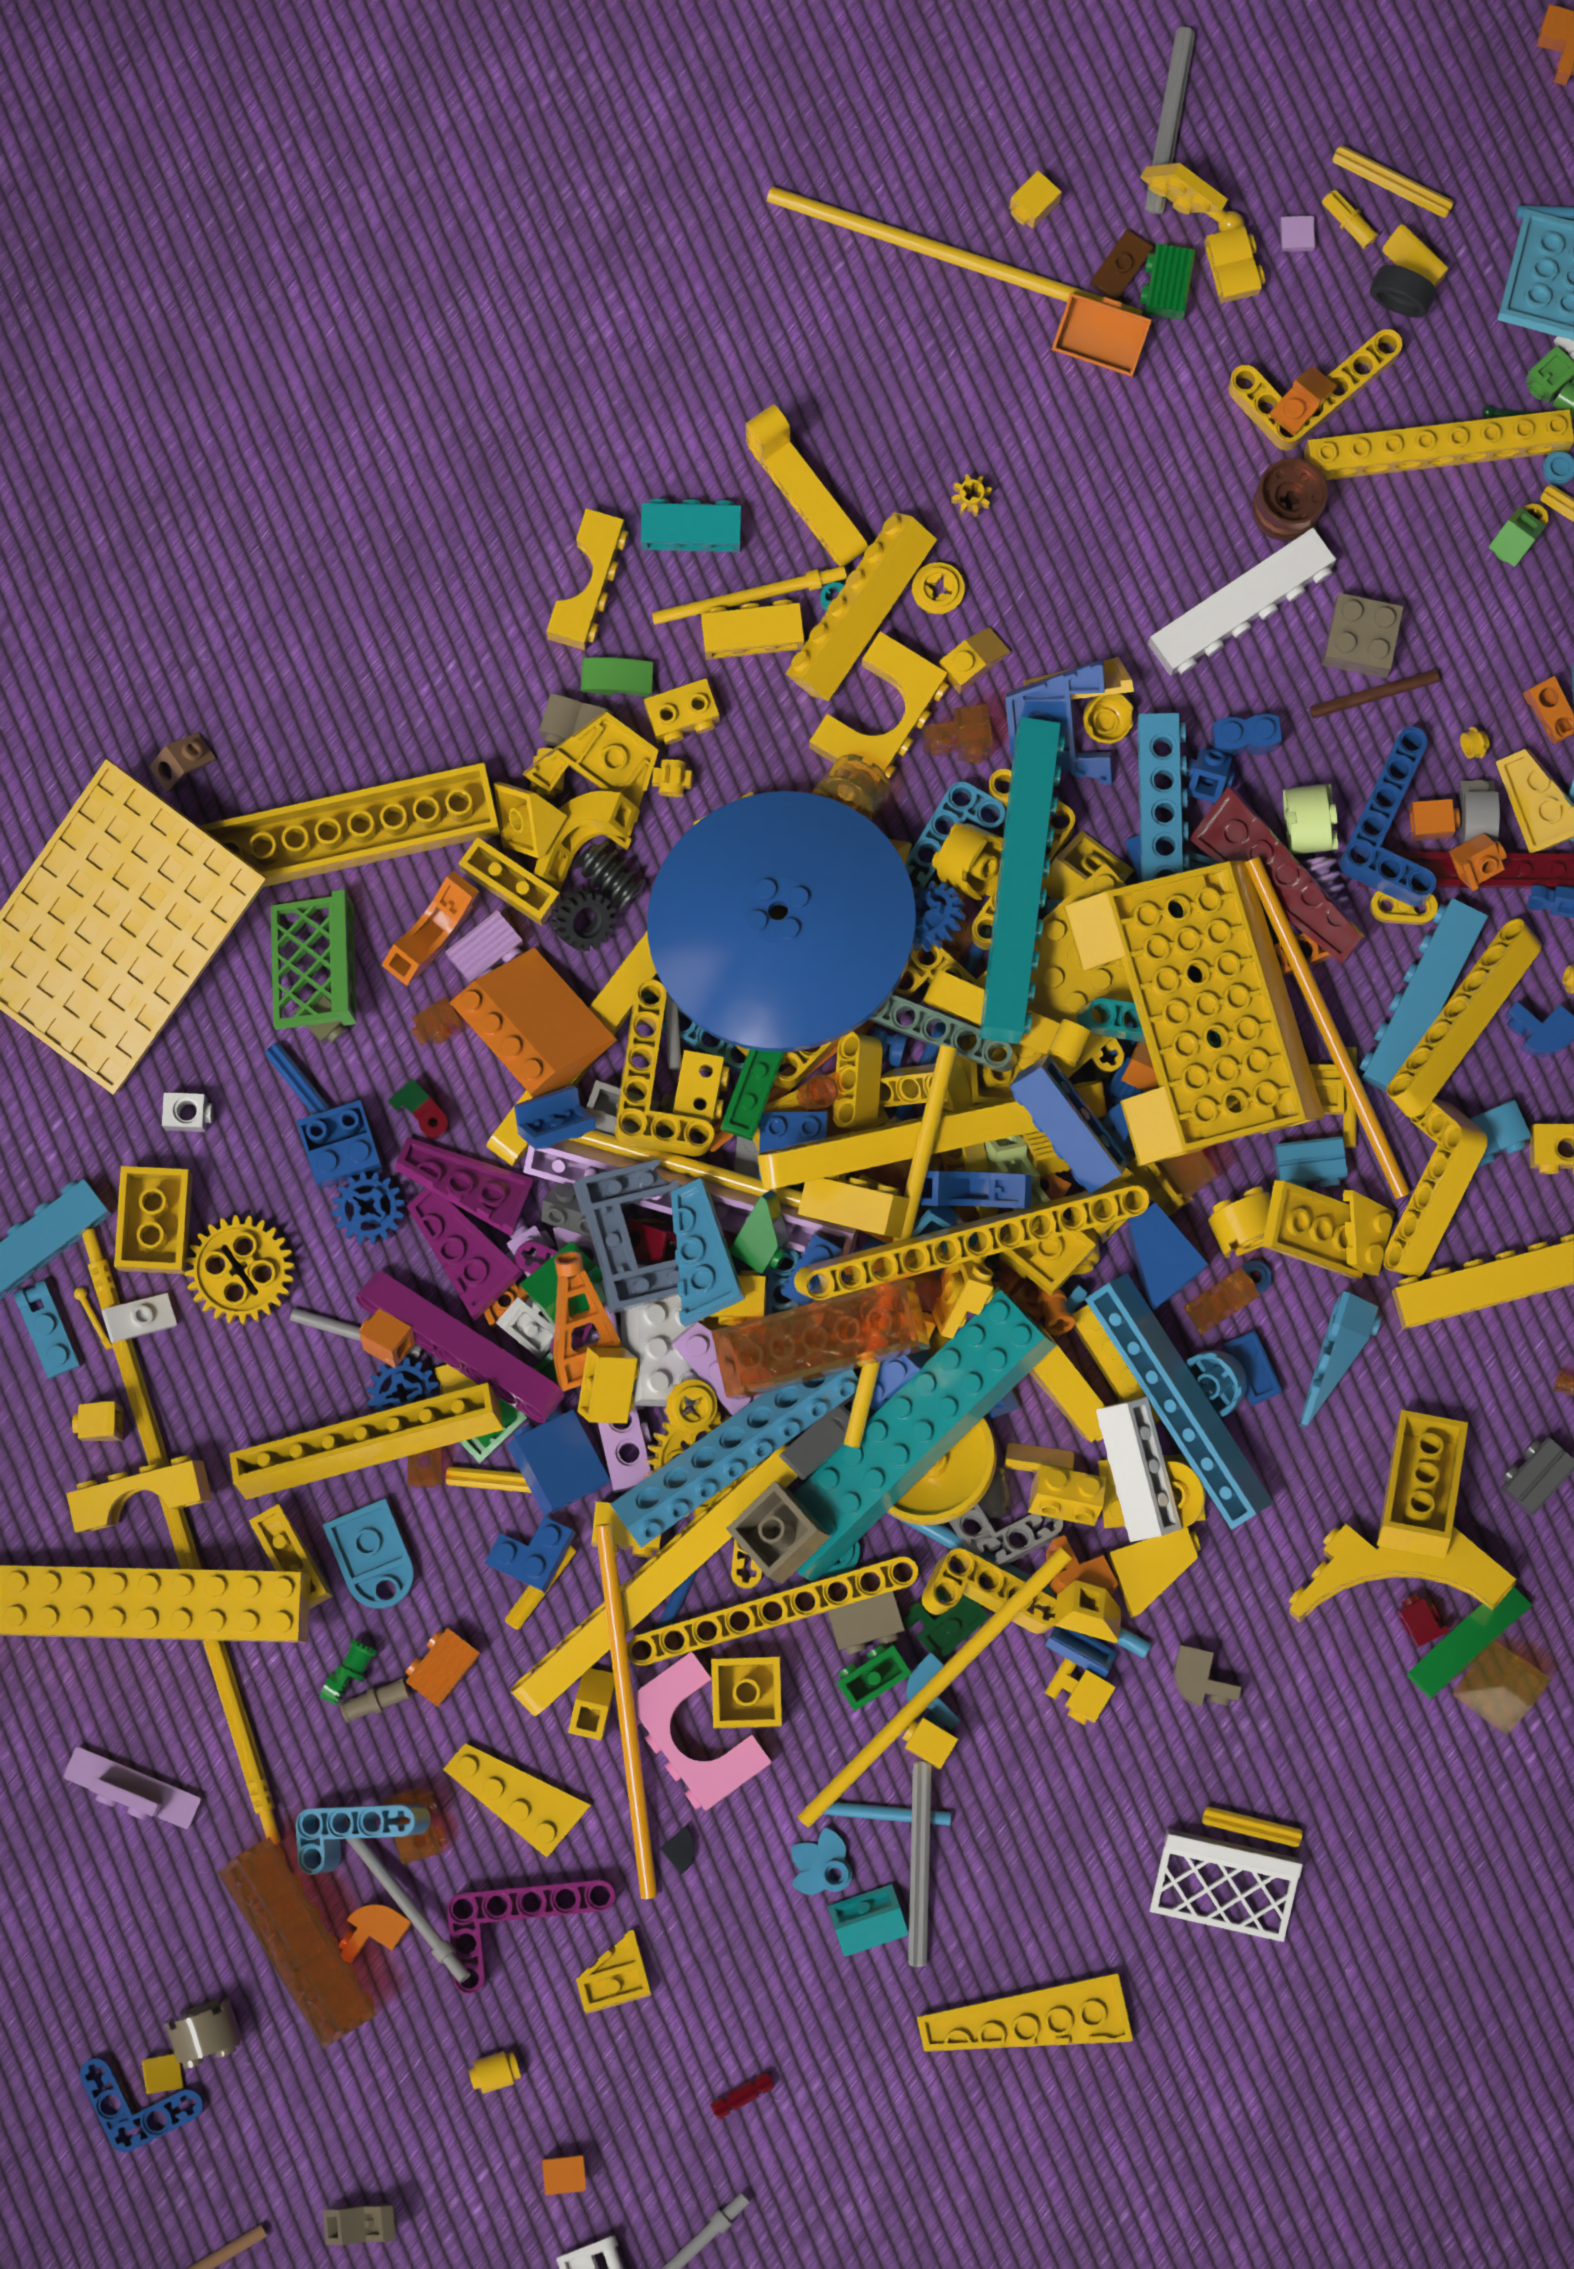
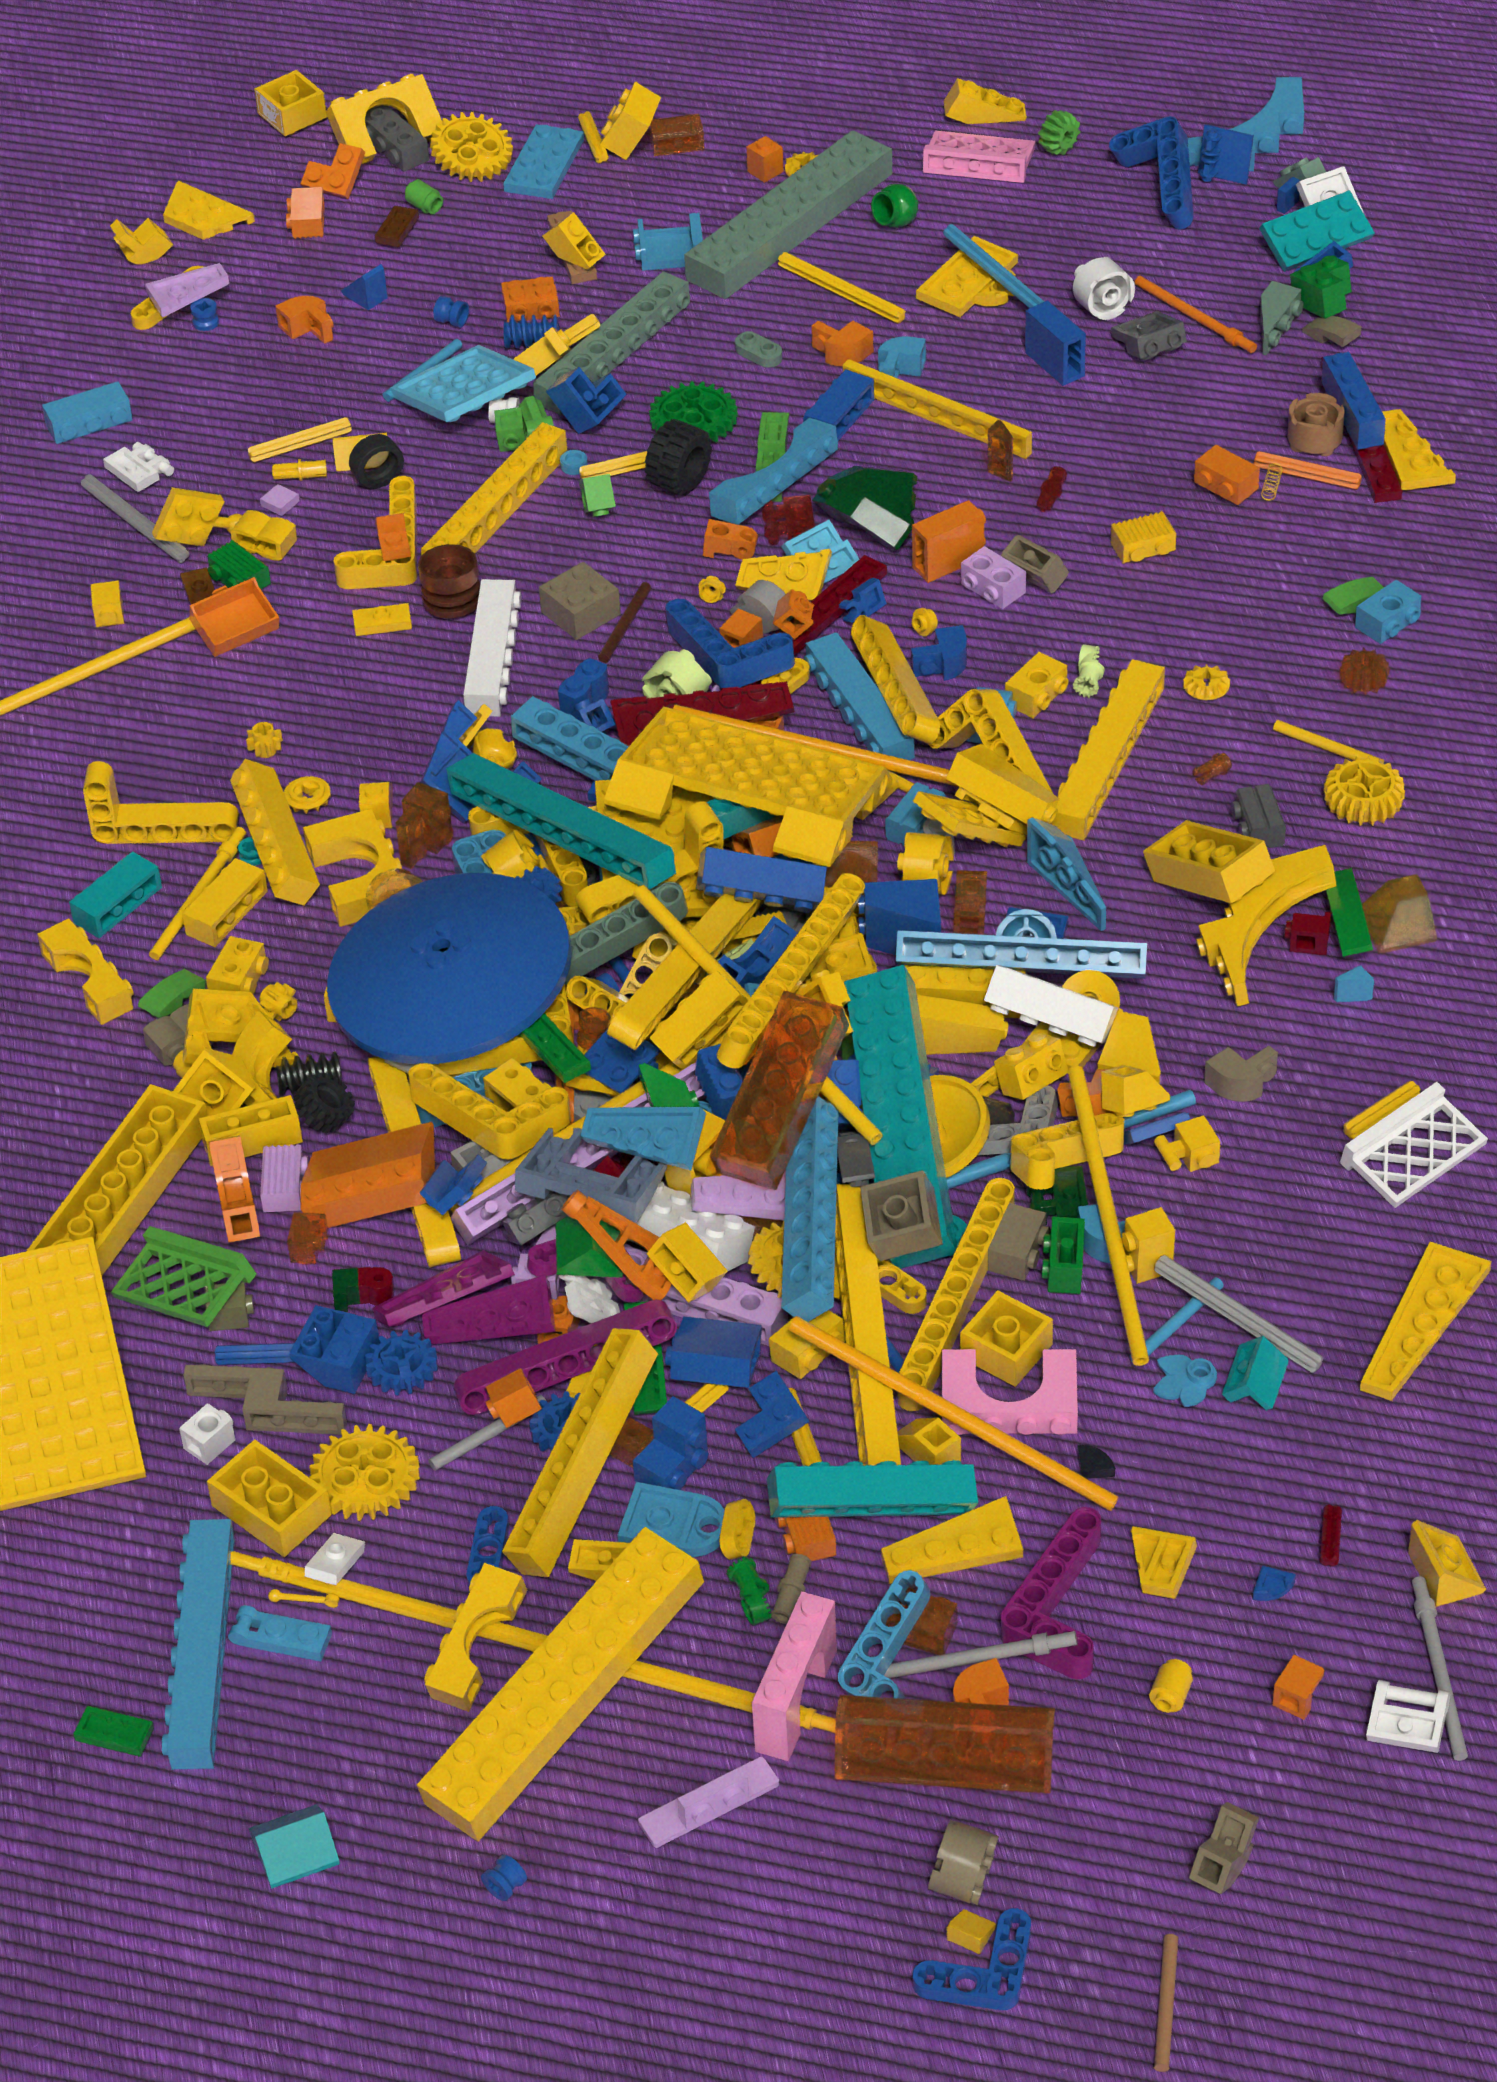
camera: 50 degrees left, 35 degrees down
(99, 1421) = (391, 1628): yellow slope -> none
(223, 1449) = (484, 1538): none -> blue beam
(253, 1128) = (265, 1399): none -> dark tan bracket
(273, 1778) = (803, 1648): none -> bright pink arch
(398, 1615) = (737, 1529): none -> yellow beam
(430, 1506) = (676, 1449): none -> blue brick
(497, 1706) = (871, 1489): none -> teal brick
(660, 2080) = (1273, 1584): none -> blue tile
(704, 1407) = (763, 1226): yellow gear -> none
(776, 2211) = (1443, 1564): none -> yellow slope
(1209, 466) = (382, 619): none -> yellow plate
(1230, 61) = (138, 467): none -> white plate
(1382, 1230) = (1002, 785): none -> yellow slope
(1383, 1705) = (1354, 986): none -> dark azure slope

